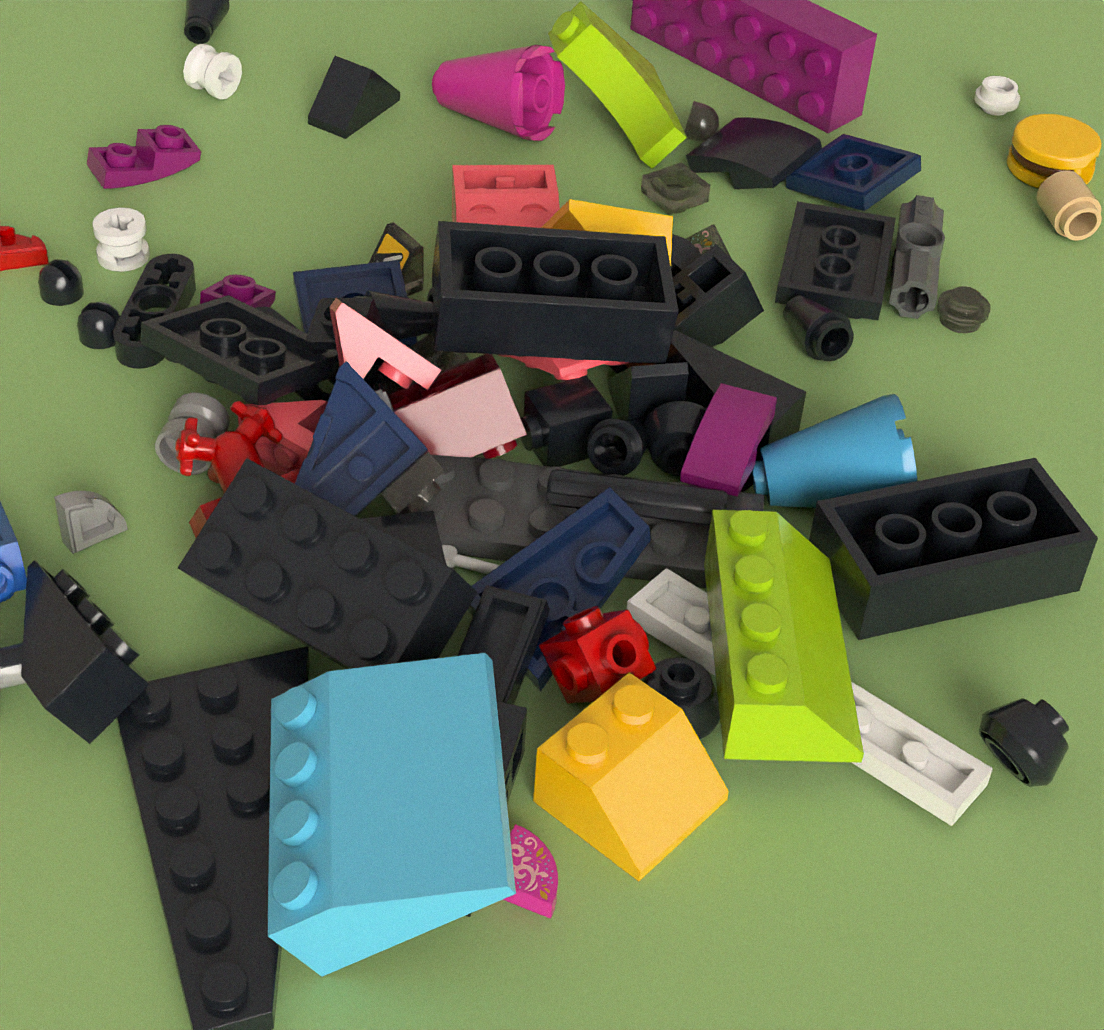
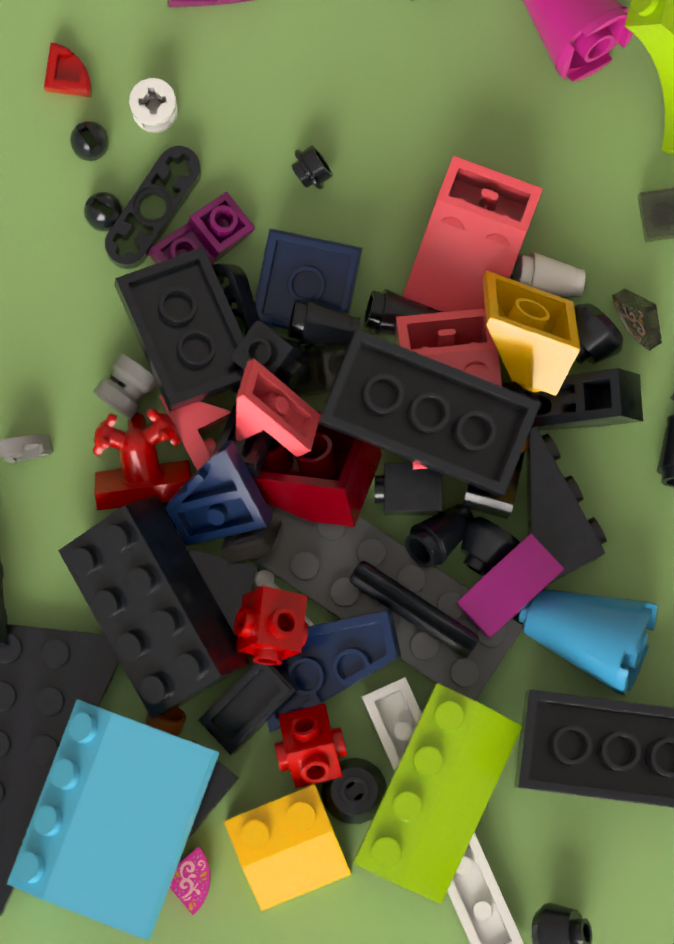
camera: 30 degrees right, 40 degrees up
(311, 240) = (311, 167): none -> black plate
(399, 245) = (367, 229): clear smoke slope -> none
(483, 536) = (271, 625): none -> red brick

